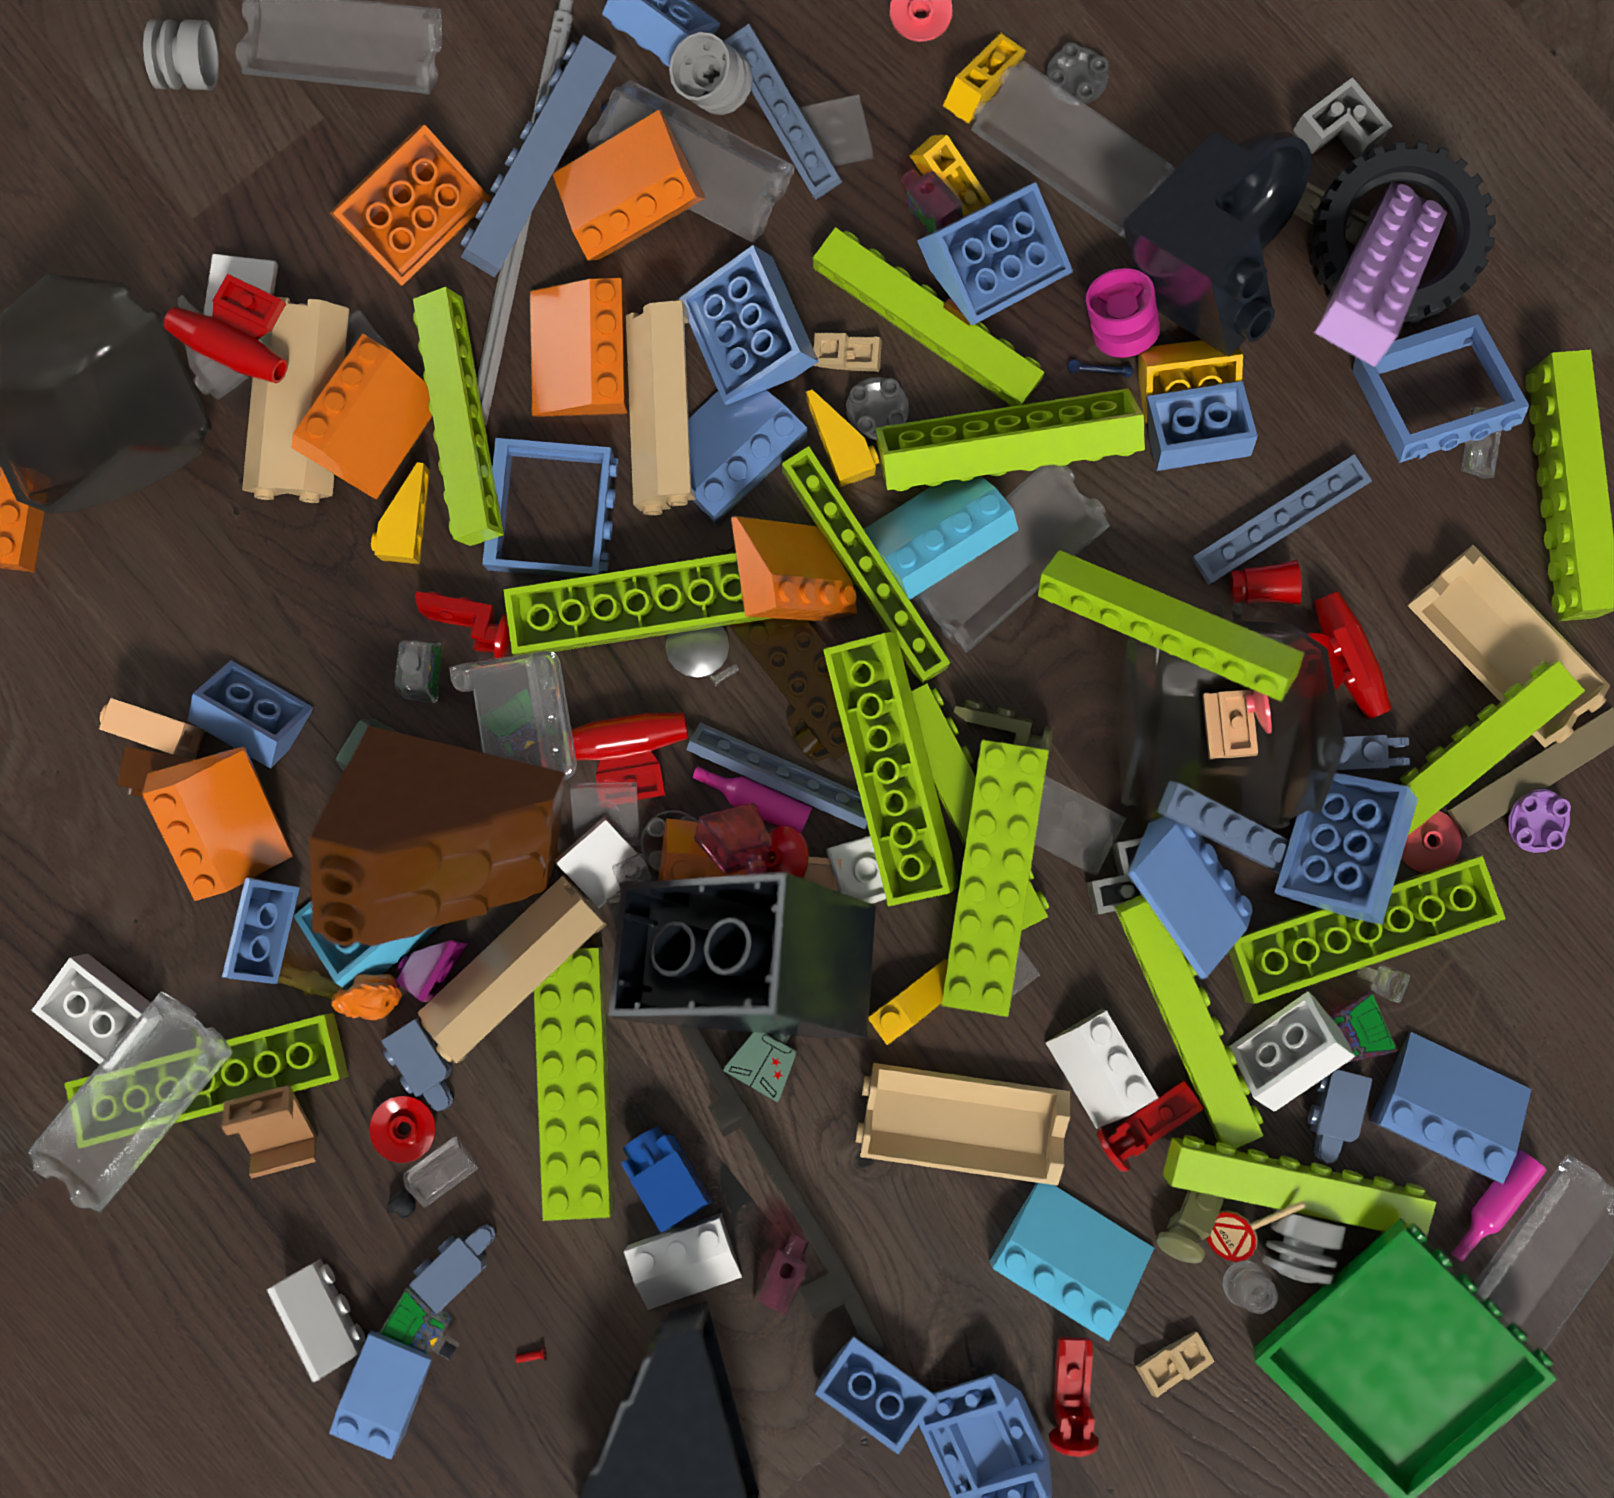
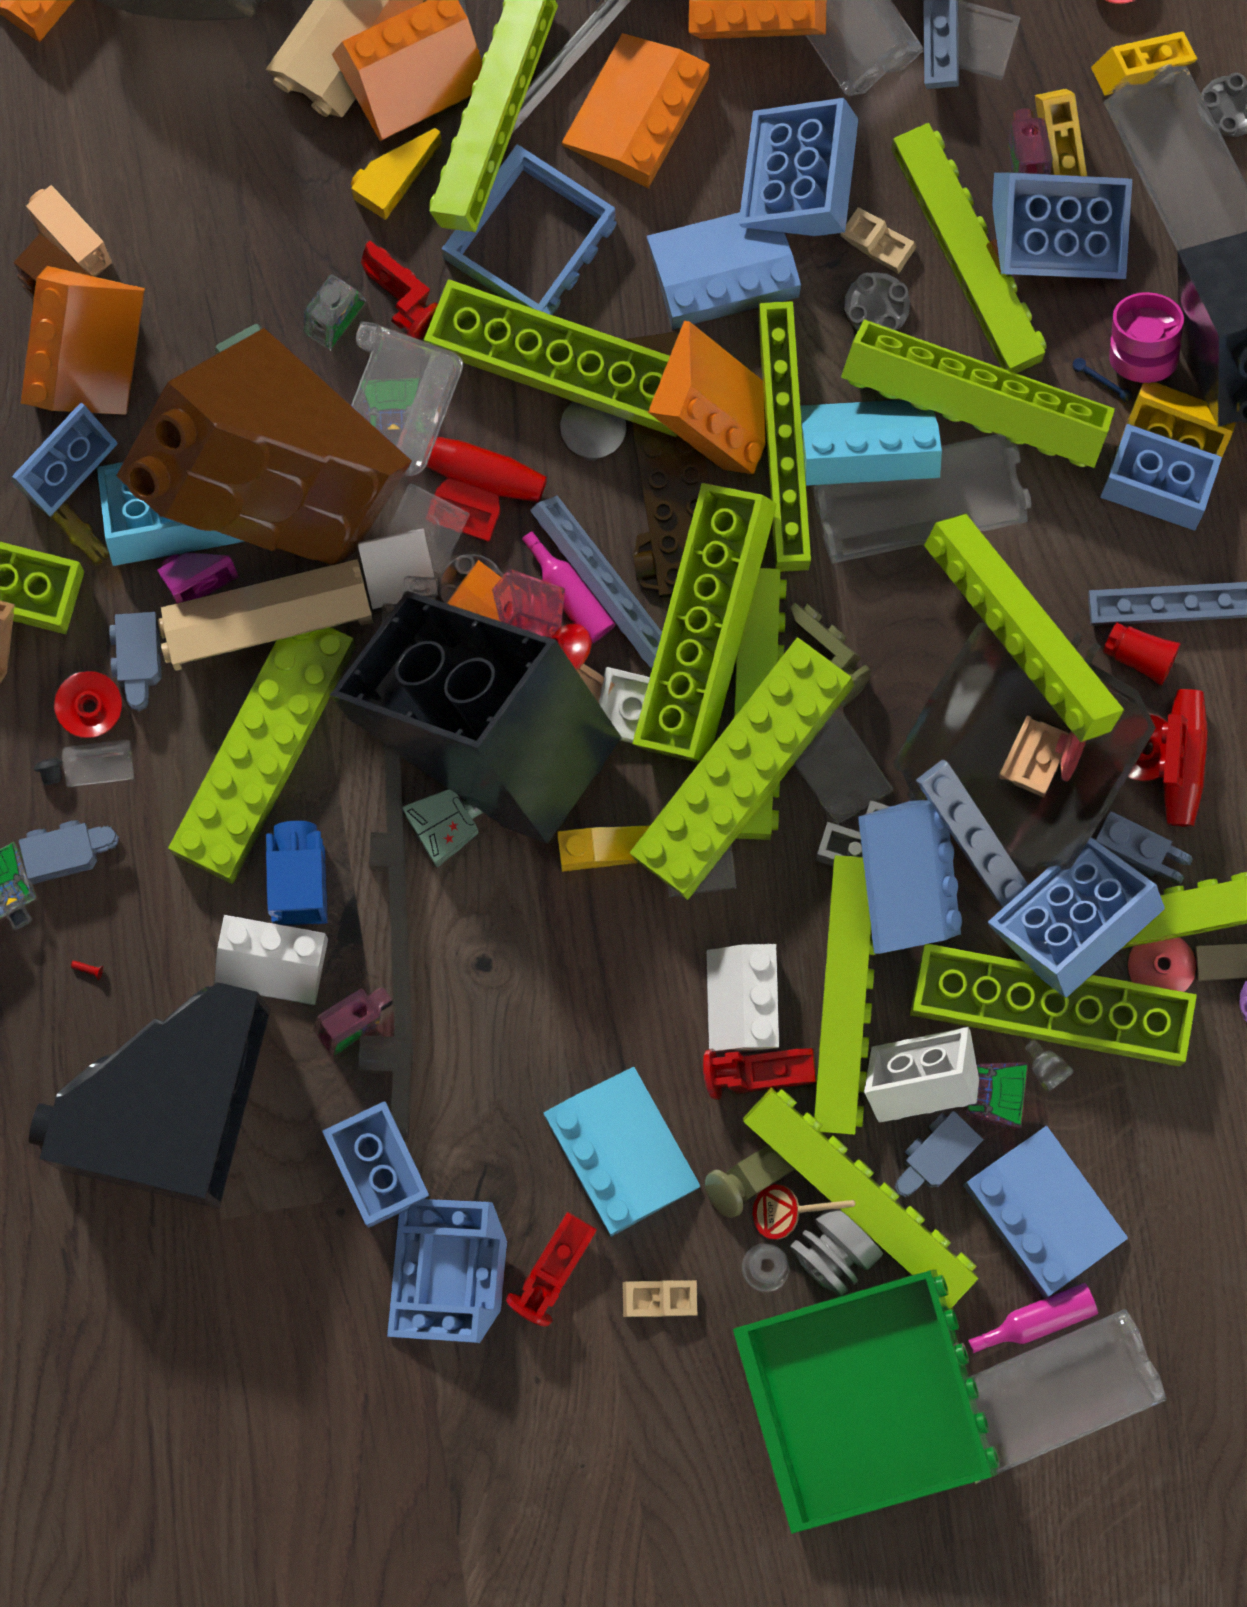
camera: 25 degrees right, 5 degrees down
(249, 713) = (158, 258): medium blue slope -> none
(369, 997) = (124, 571): orange hair -> none
(659, 407) = (677, 195): tan panel -> none
(724, 674) = (602, 466): clear piece -> none
(843, 444) = (827, 321): yellow slope -> none
(964, 1124) = (591, 976): tan panel -> none

